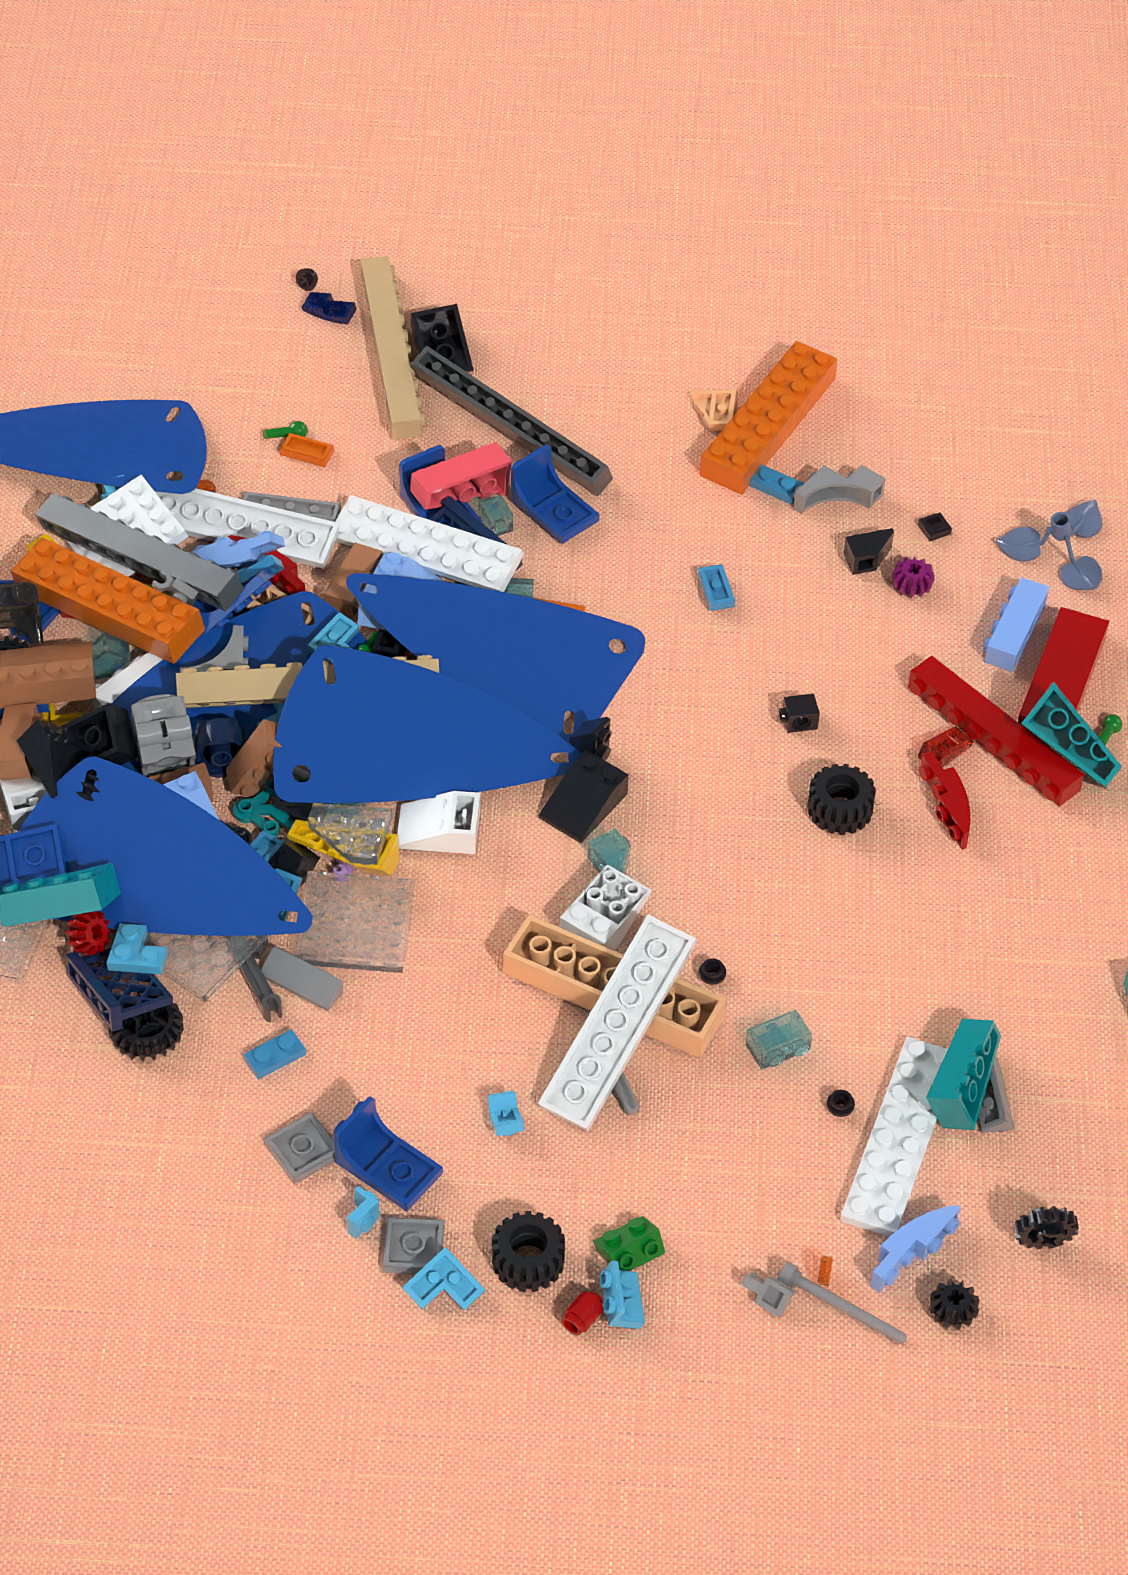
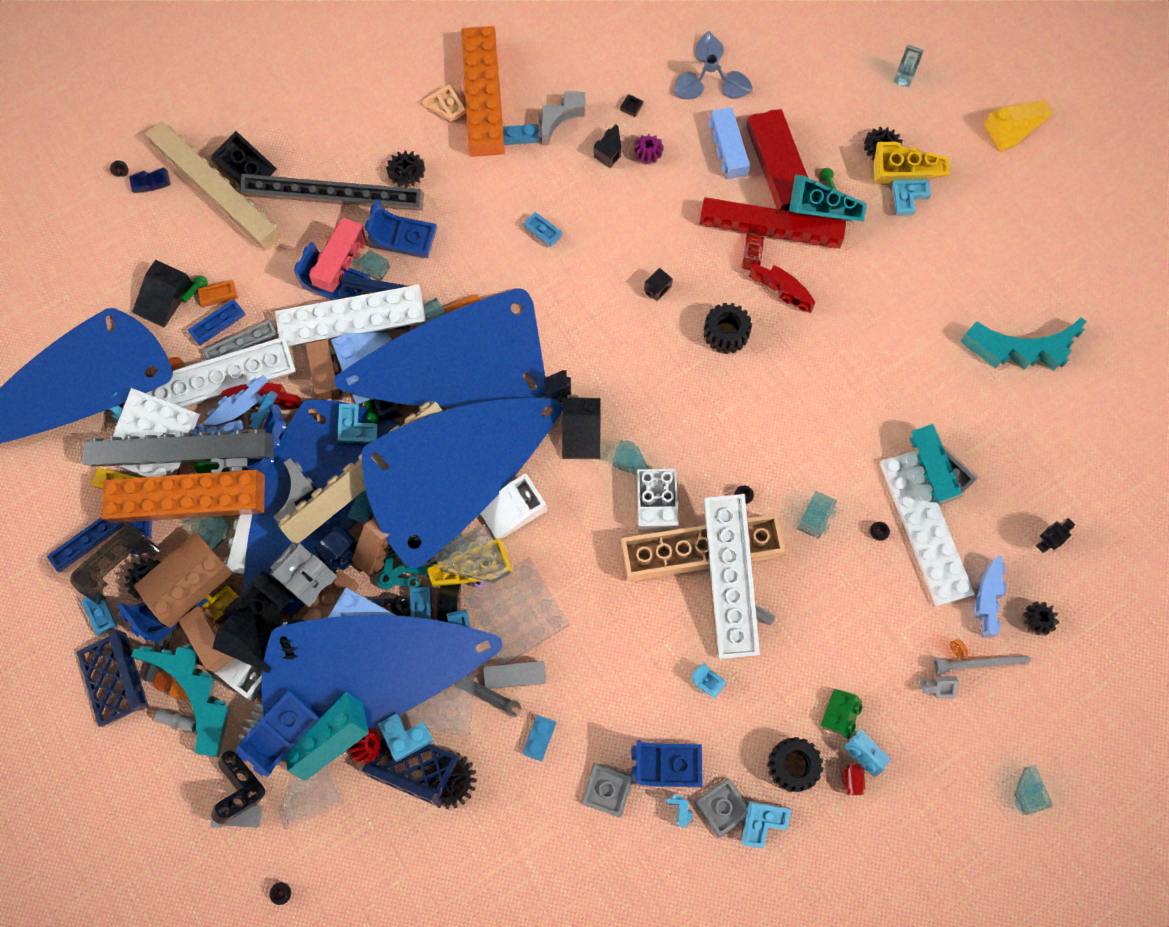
camera: 35 degrees left, 20 degrees up
(248, 414) = (161, 293): none -> black slope
(282, 474) = (216, 322): none -> blue plate
(614, 444) = (405, 168): none -> black gear
(777, 1461) = (1031, 792): none -> clear light blue slope

